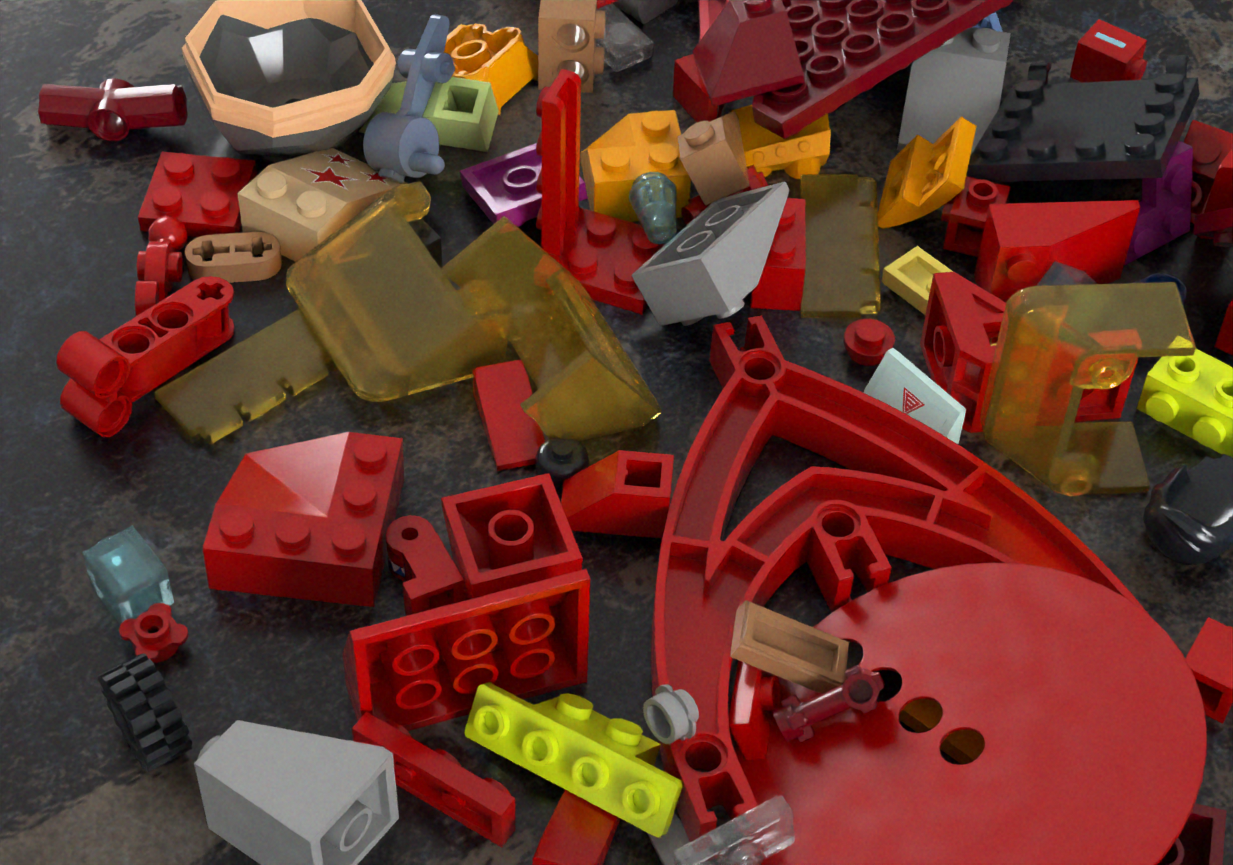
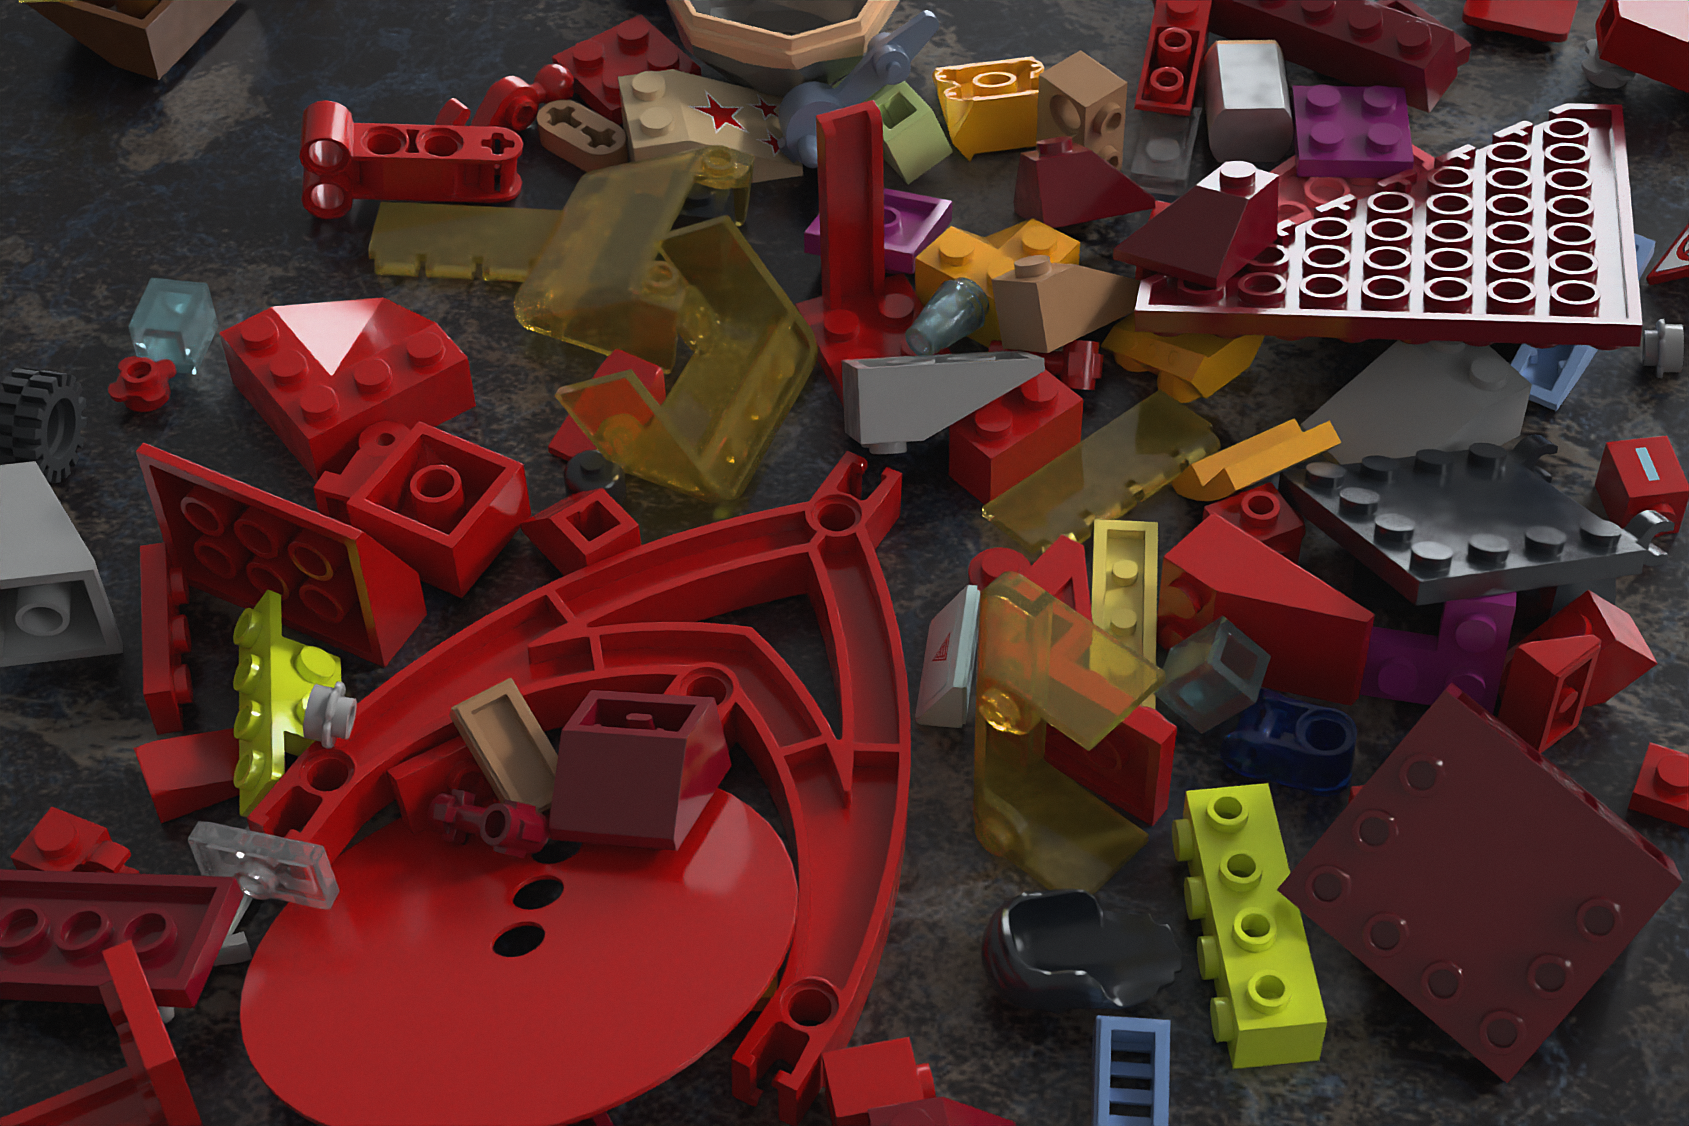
camera: 50 degrees right, 0 degrees up
(624, 81) = (1073, 185): none -> dark red slope
(890, 592) = (637, 769): none -> dark red slope

